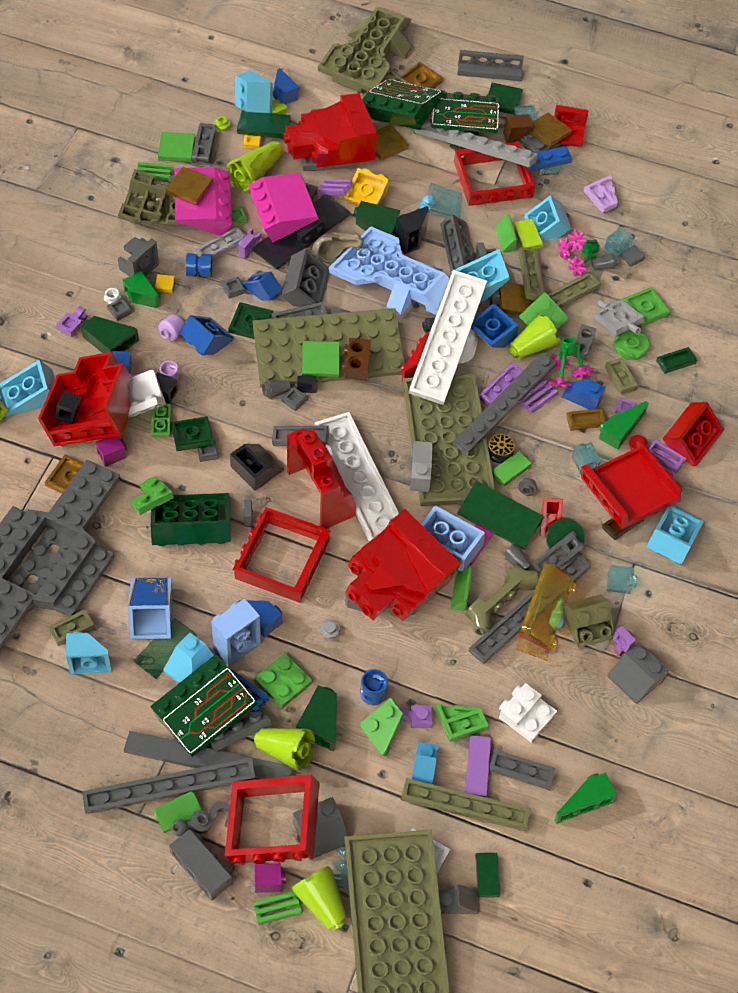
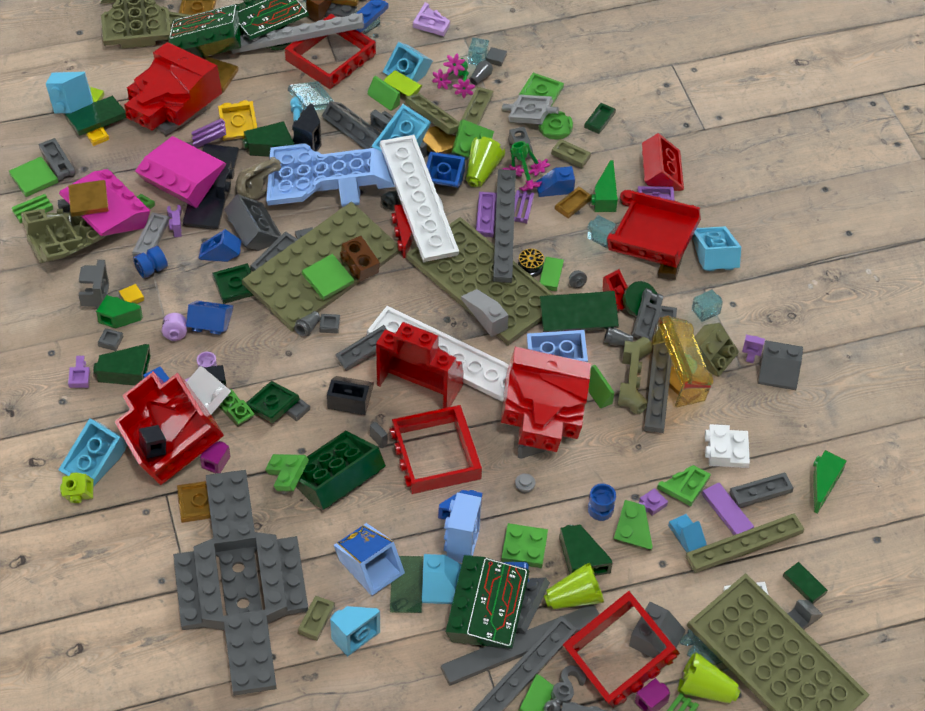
camera: 35 degrees left, 5 degrees down
(111, 295) = (92, 329): white plate -> none
(222, 123) = (58, 134): lime plate -> none
(233, 287) = (194, 264): dark grey tile -> none
(254, 164) = (122, 153): lime cone -> none
(285, 88) = (93, 72): blue slope -> none
(306, 384) = (331, 304): black plate -> none
(624, 404) = (593, 175): medium lavender tile -> none

